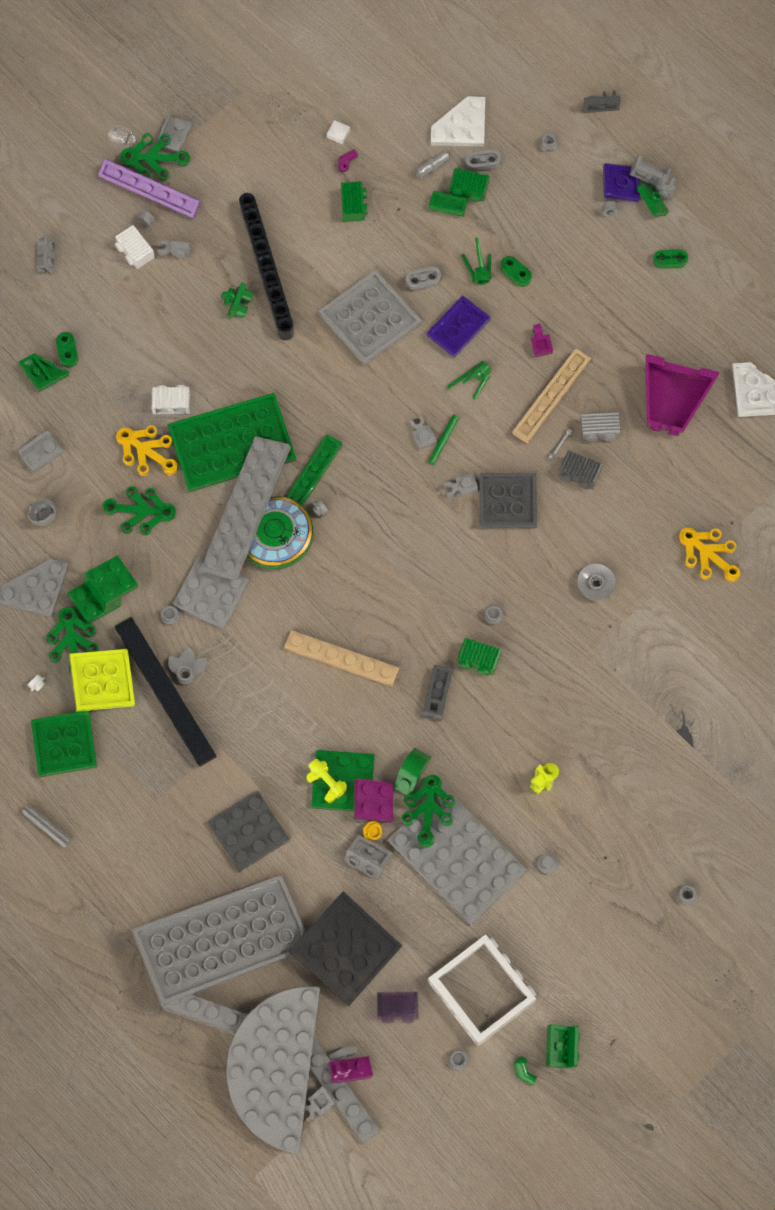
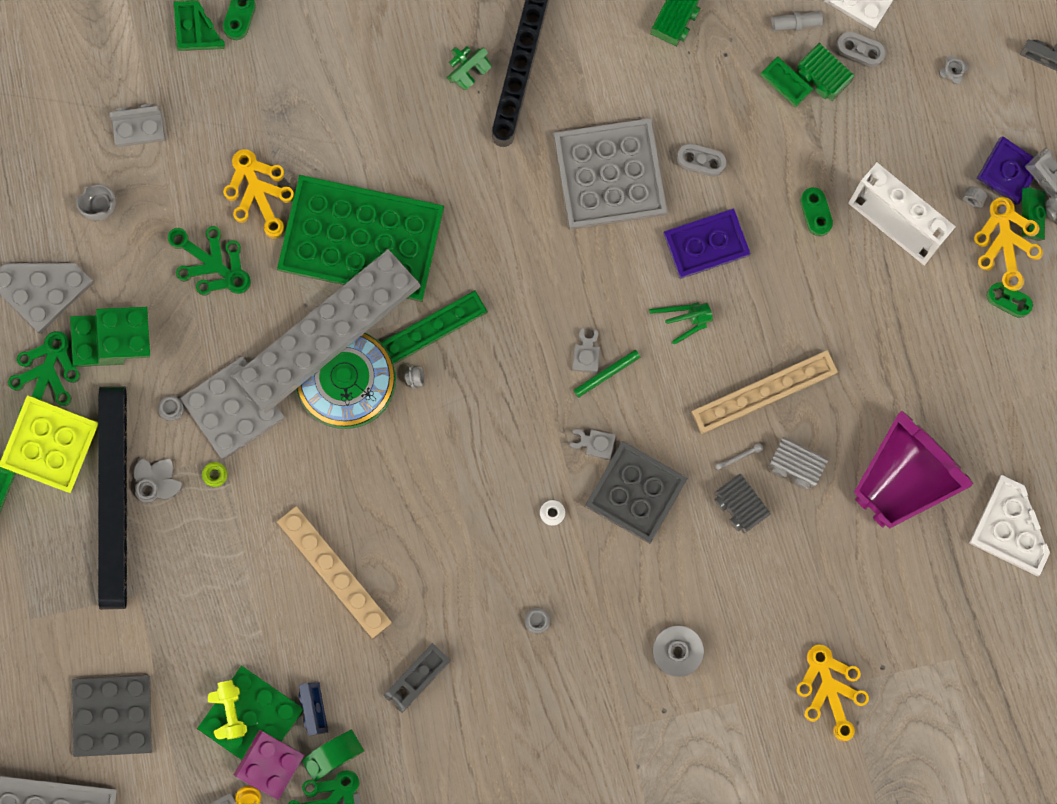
camera: 25 degrees right, 10 degrees up
(171, 400) = (320, 147): white brick -> none
(224, 635) = (209, 468): none -> lime plate
(375, 744) = (311, 699): none -> dark blue plate
(461, 548) = (552, 521): none -> white plate
(478, 656) = (489, 663): green brick -> none
(481, 274) = (773, 194): green plant -> none
(541, 343) = (790, 320): magenta plate -> none
(569, 251) = (901, 213): none -> white window
(646, 221) = (1006, 240): none -> yellow plant

